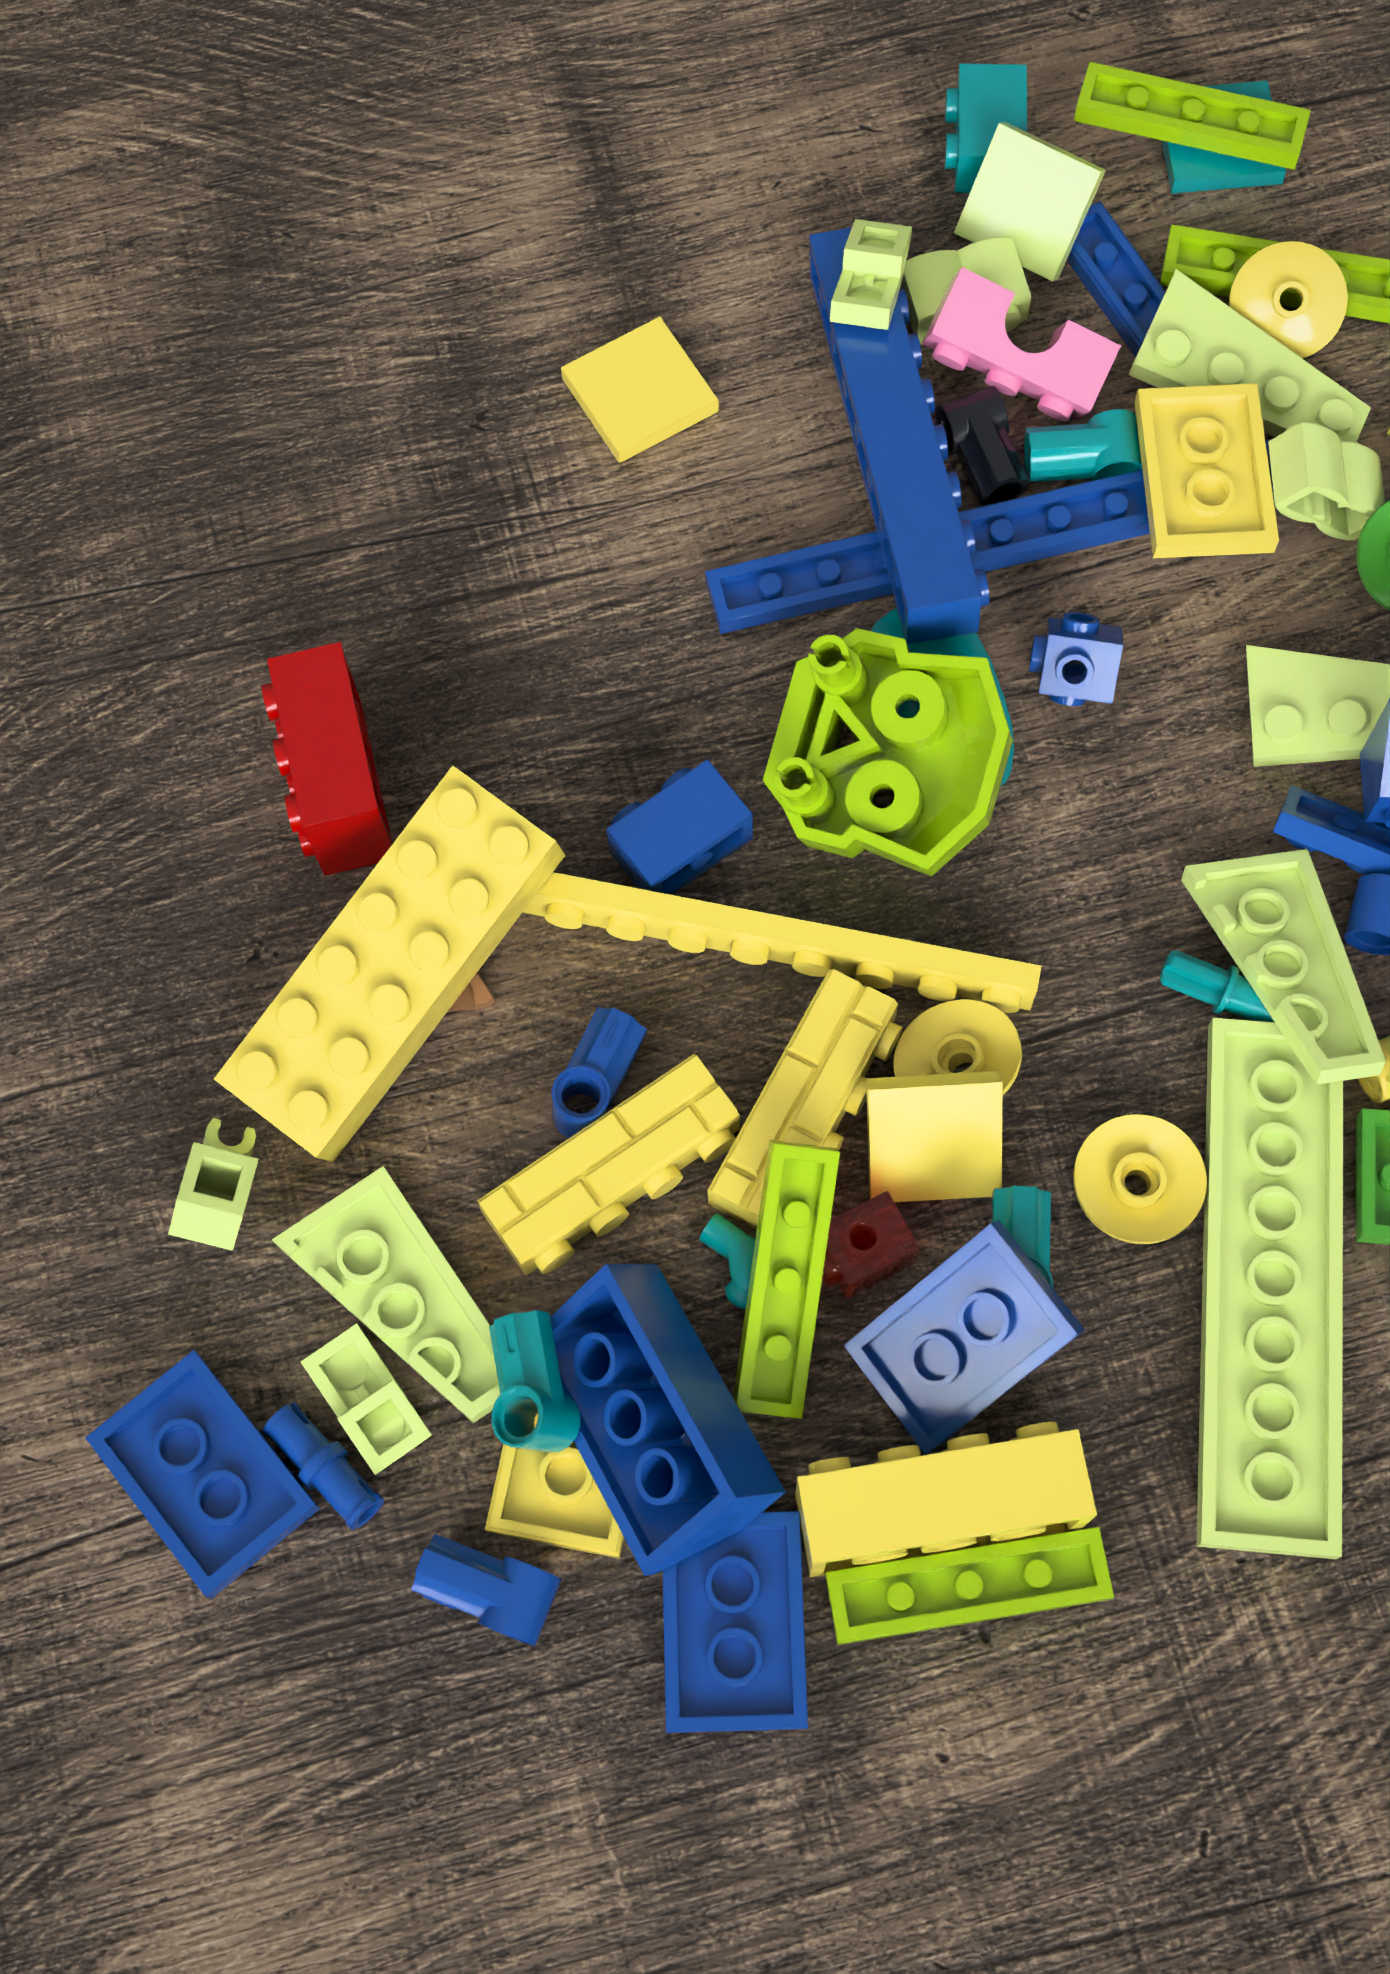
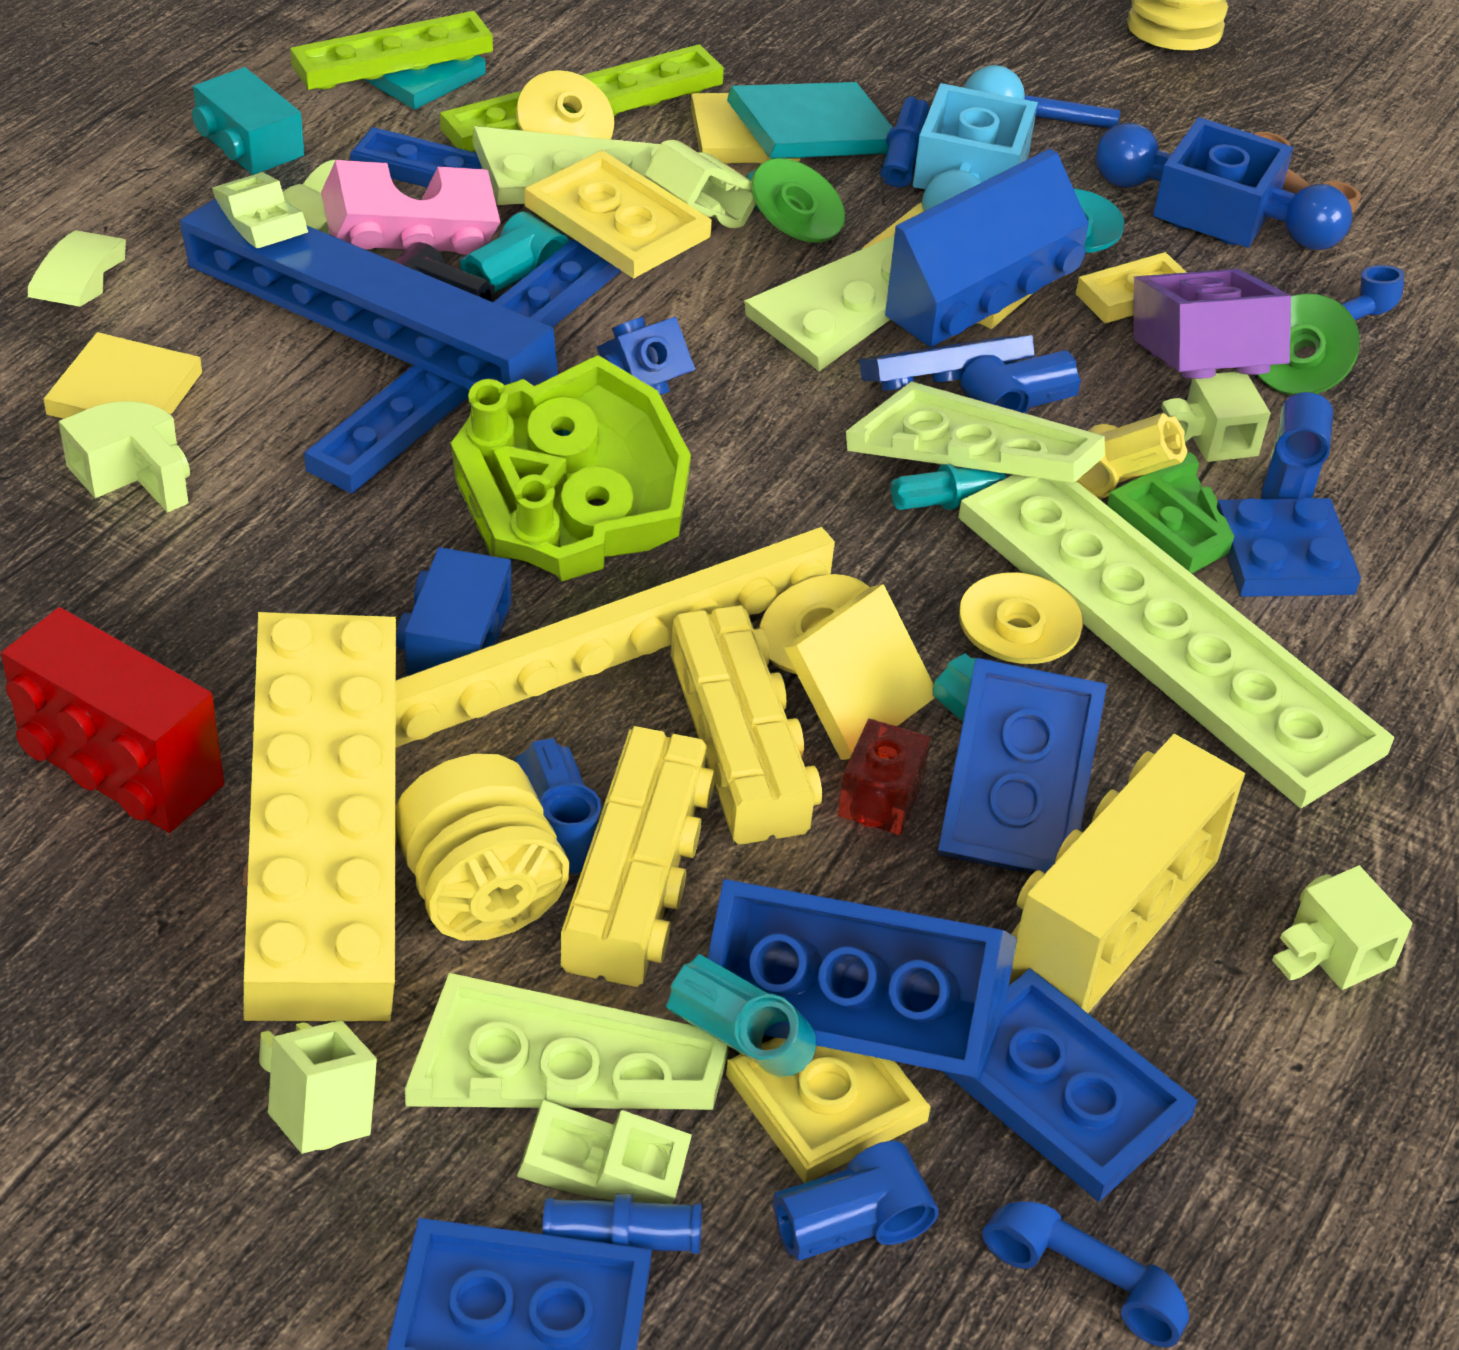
camera: 50 degrees left, 25 degrees down
(482, 1080) = (480, 847): none -> light yellow wheel
(574, 463) = (124, 445): none -> yellowish green brick
(613, 1842) = (1155, 1305): none -> blue bar
(698, 227) = (76, 267): none -> yellowish green slope
(735, 1247) = (799, 848): teal arm -> none
(785, 1279) = (855, 807): lime plate -> none
(968, 1585) = (1190, 937): lime plate -> none
(1030, 195) = (323, 125): yellowish green tile -> none
(1095, 1688) = (1345, 929): none -> yellowish green brick

